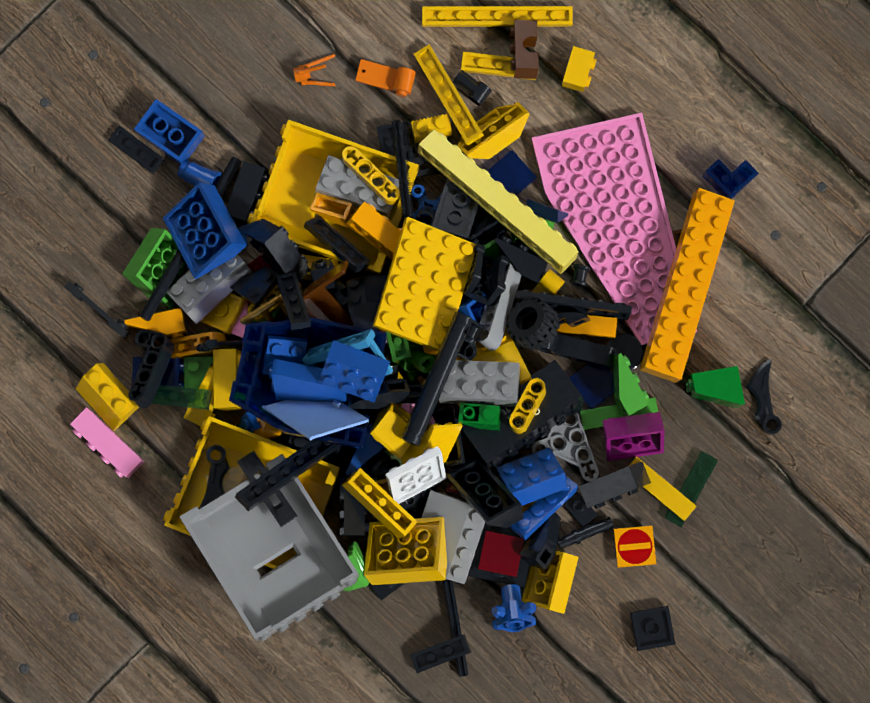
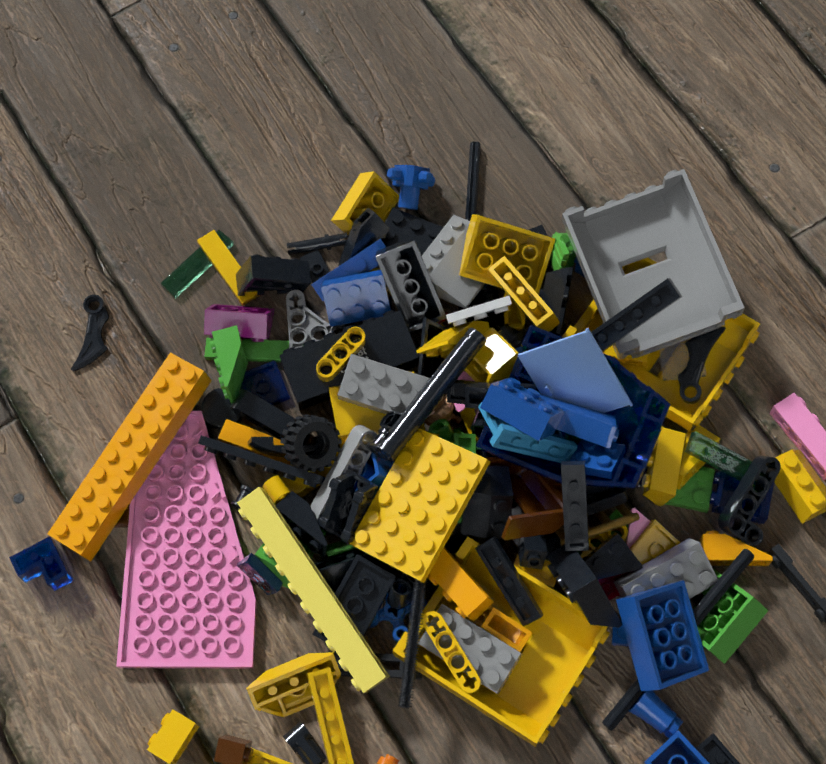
camera: 160 degrees left, 15 degrees down
(187, 345) = (688, 517): light orange slope -> none
(214, 344) = (678, 499): black hinge -> none
(246, 191) = (602, 680): black brick -> none
(283, 511) = (653, 356): black container -> none
(386, 140) = (421, 708): black plate -> none
(424, 127) = (366, 706): yellow brick -> none
(440, 653) = (493, 162): black plate -> none
(480, 416) = (394, 354): green slope -> none
(501, 553) = (407, 229): dark red tile -> none
(512, 173) = (289, 630): clear blue tile -> none
(635, 546) = (271, 219): piece -> none
(652, 628) = (277, 146): black plate -> none
(717, 386) = (134, 347): green slope -> none

